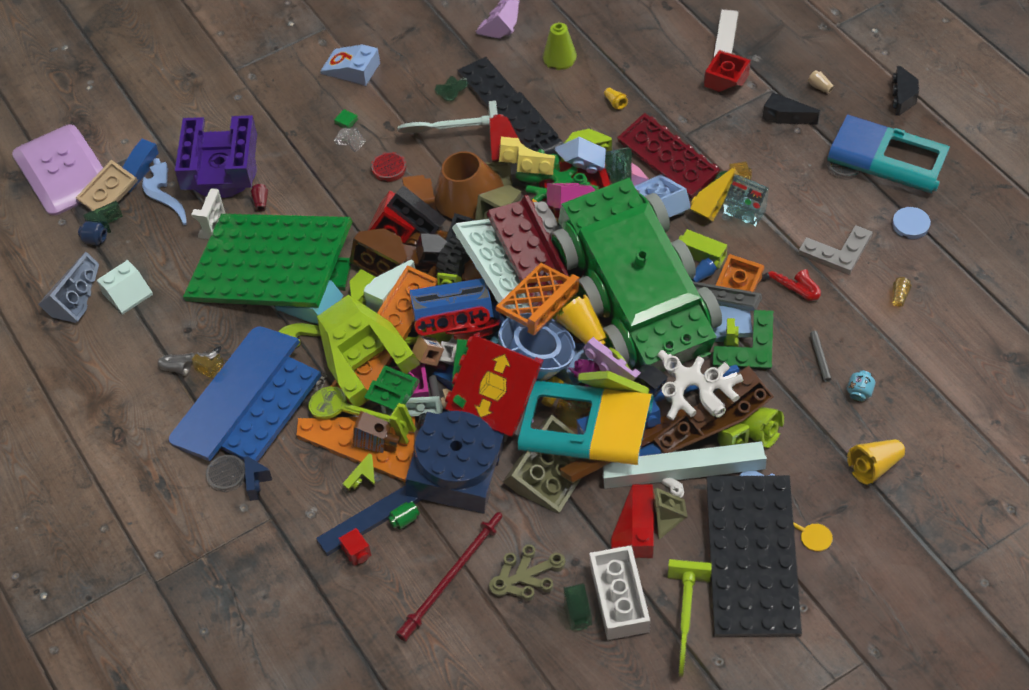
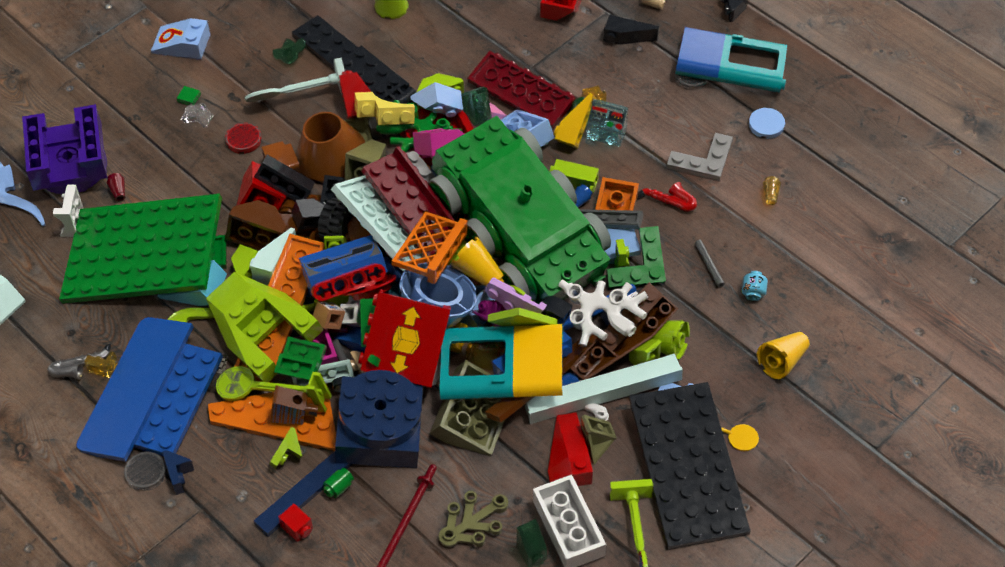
camera: 15 degrees left, 0 degrees up
(616, 98) = (458, 40): yellow cone -> none

